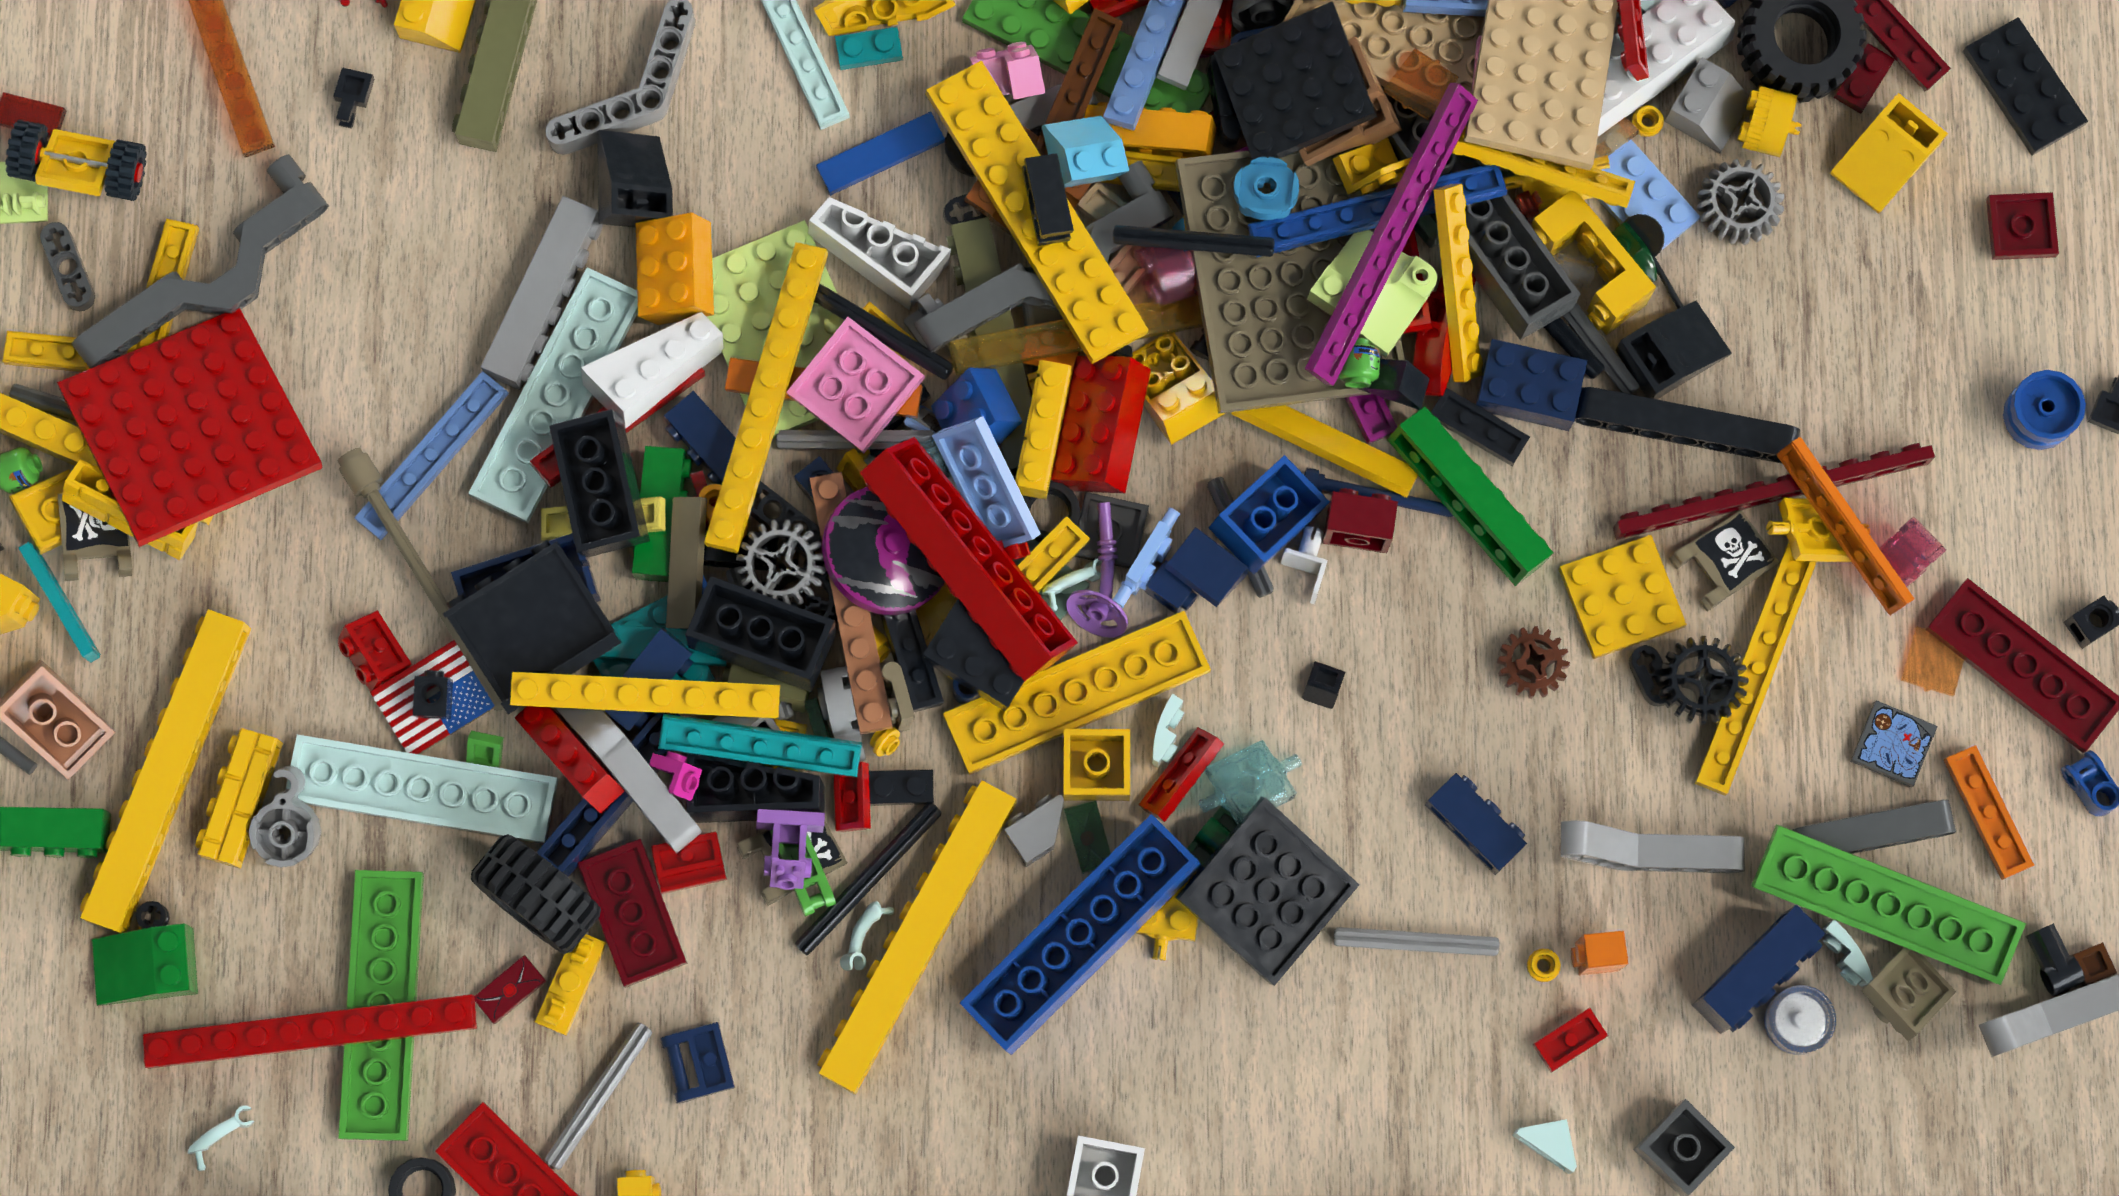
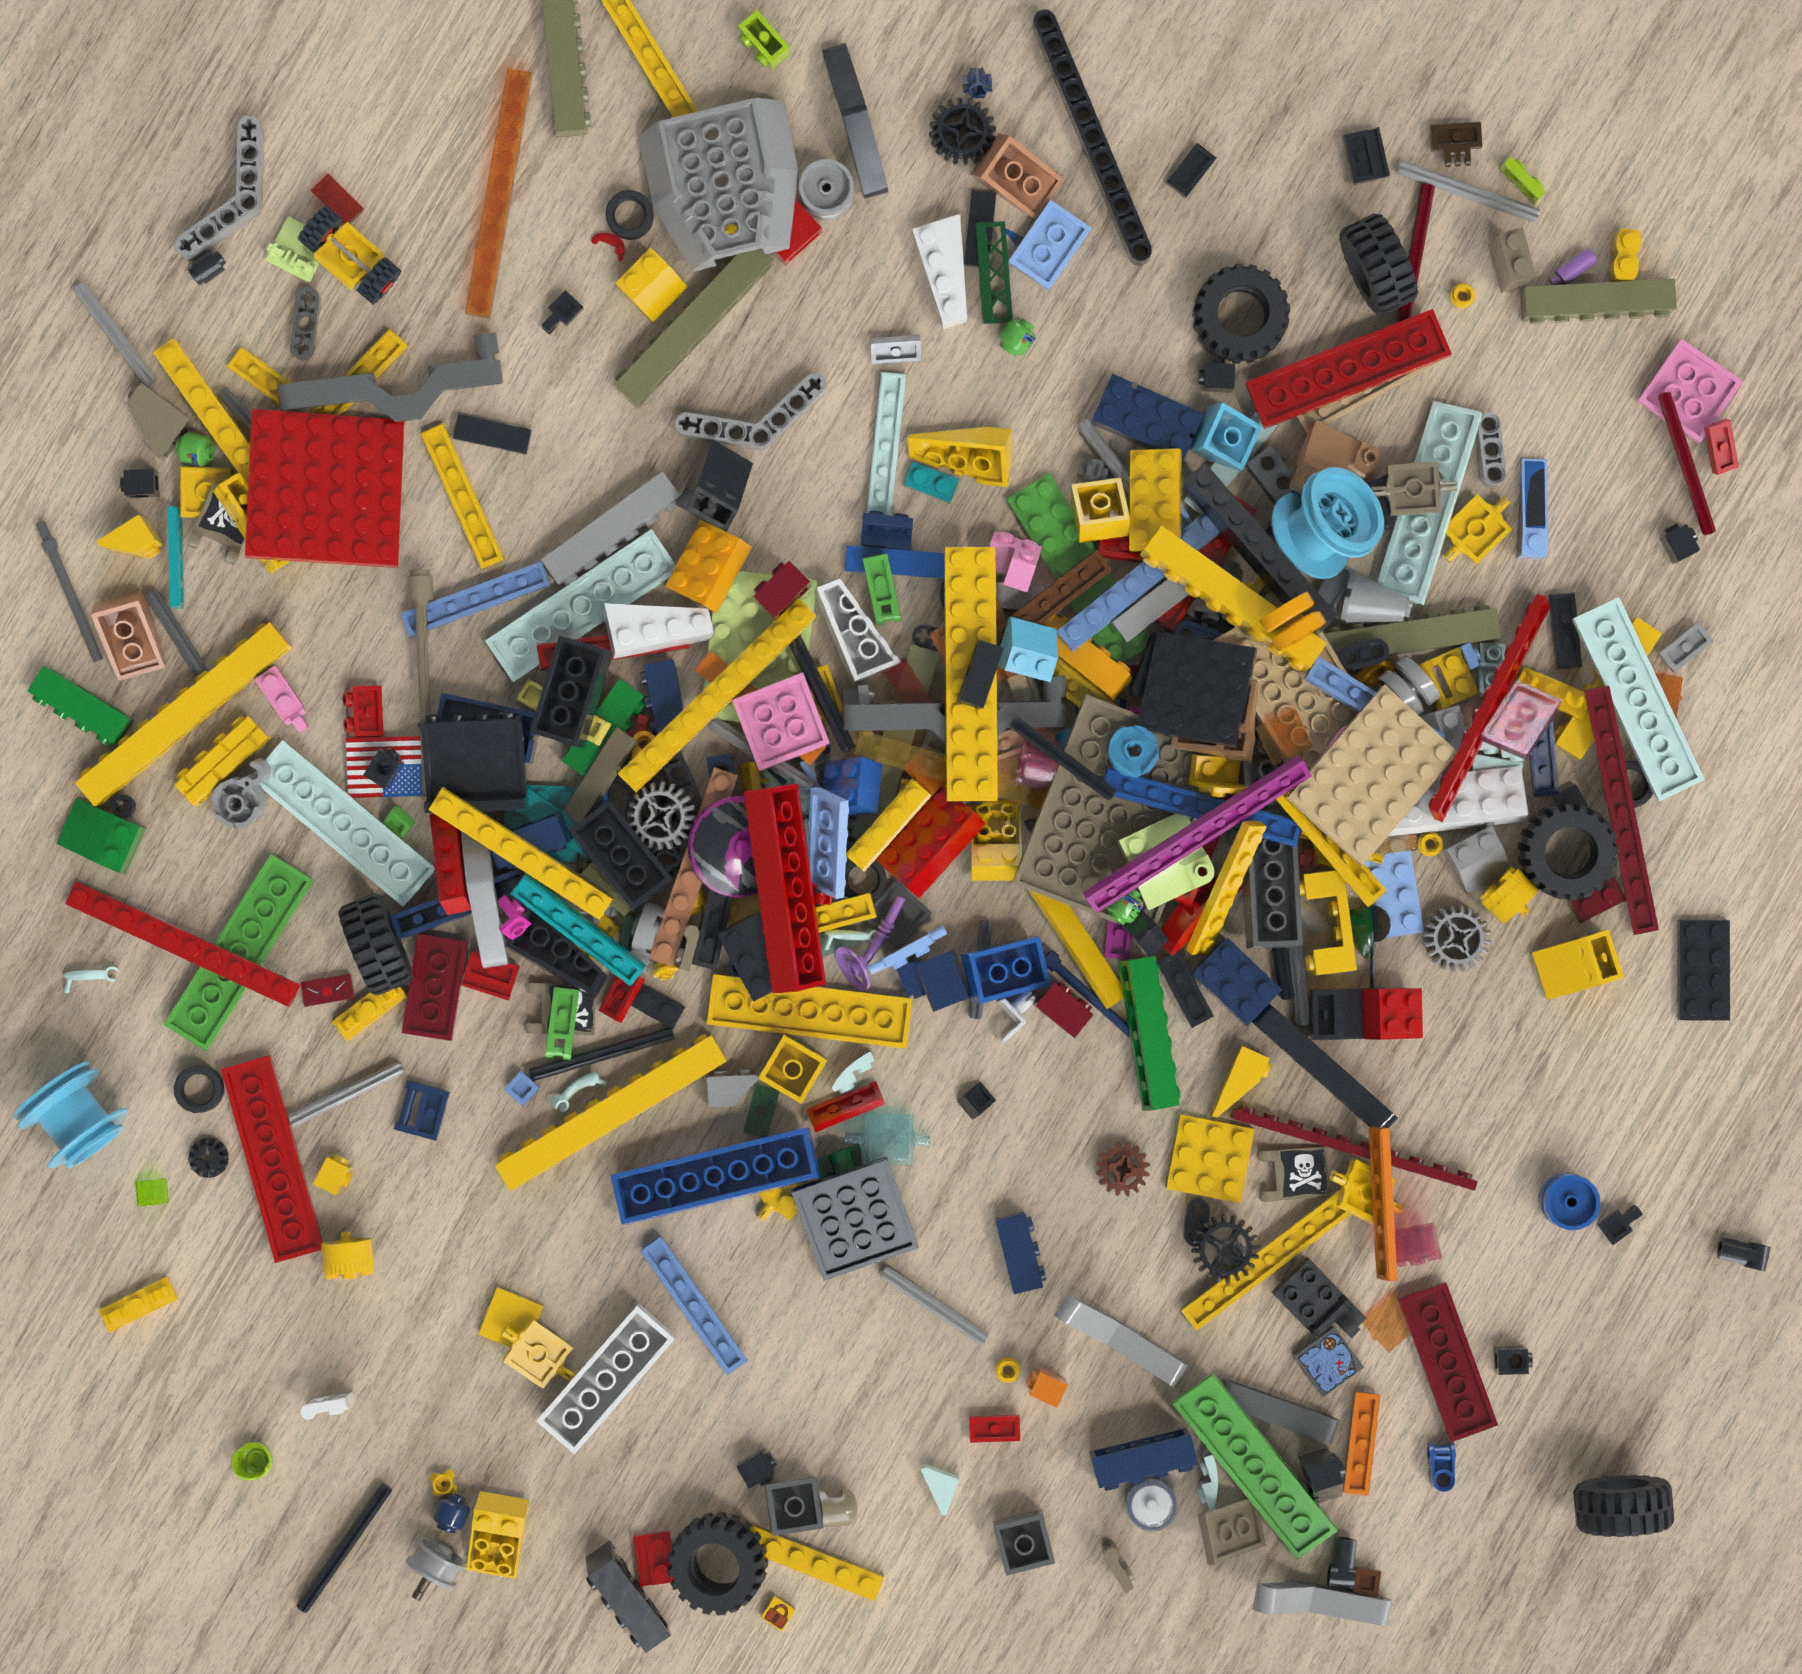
camera: 30 degrees right, 10 degrees up
(105, 685) = (175, 632): none -> dark grey axle
(271, 689) = (282, 698): none -> bright pink hinge
(348, 268) = (492, 434): none -> black tile
(352, 354) = (462, 496): none -> yellow tile
(771, 242) = (781, 590): none -> dark red brick
(788, 828) = (547, 1025): medium lavender tile -> none
(799, 969) = (521, 1088): none -> medium blue plate
(850, 121) = (886, 530): none -> dark blue bracket
(882, 186) = (882, 588): none -> bright green plate
(969, 267) = (907, 684): none -> clear red tile
(1143, 1102) = (694, 1305): none -> medium blue plate
(1602, 477) = (1243, 1075): none -> yellow slope
(1723, 318) = (1392, 1013): none -> red brick
(1816, 1116) = (1121, 1570): none -> dark tan plate
(1840, 681) = (1317, 1301): none -> black plate
(1972, 868) = (1323, 1474): none -> black wedge
(2022, 226) = (1638, 1066): dark red plate -> none

